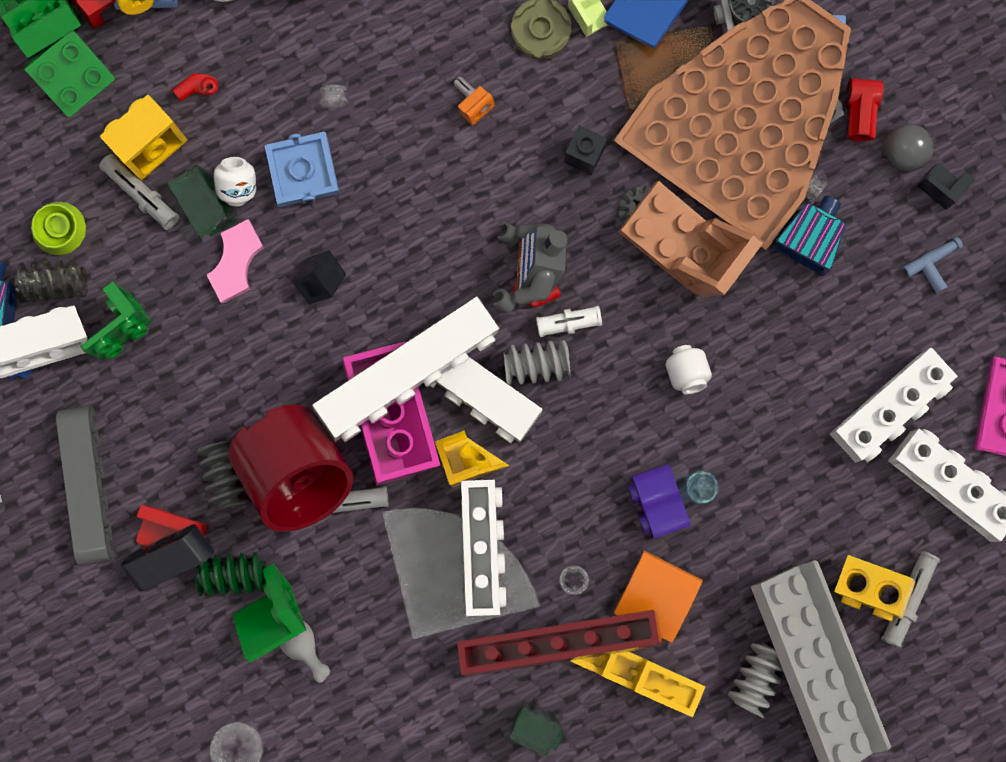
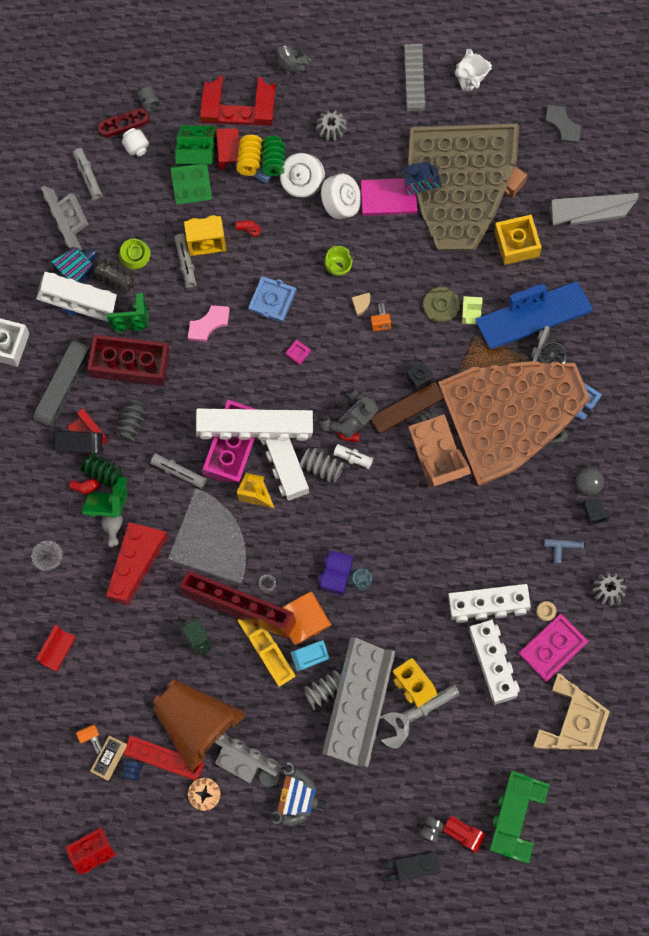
camera: 35 degrees right, 10 degrees down
(157, 390) = (128, 360): none -> dark red brick
(199, 201) = (212, 284): clear green hinge -> none
(222, 614) = (85, 487): none -> red arm
(234, 181) = (235, 284): white head -> none
(290, 468) = (166, 434): dark red brick -> none
(319, 277) = (244, 356): black panel -> none
(333, 96) = (312, 274): clear bush -> none
(355, 45) = (340, 255): none -> lime hair
(367, 674) = (136, 556): none -> red wedge
(389, 222) = (298, 352): none -> dark pink tile
(429, 95) = (361, 303): none -> tan tile
(480, 544) = (231, 532): white brick -> none
(596, 202) = (407, 408): none -> reddish brown tile
(688, 369) = (396, 518): white head -> none
(706, 646) = (310, 655): none -> medium azure tile
(813, 236) = (507, 492): dark blue torso -> none
(815, 188) = (525, 470): clear bush -> none
(863, 102) = (580, 444): red piece -> none
(901, 682) = (396, 742): none -> white piece
(972, 366) = (546, 611): none -> tan tile

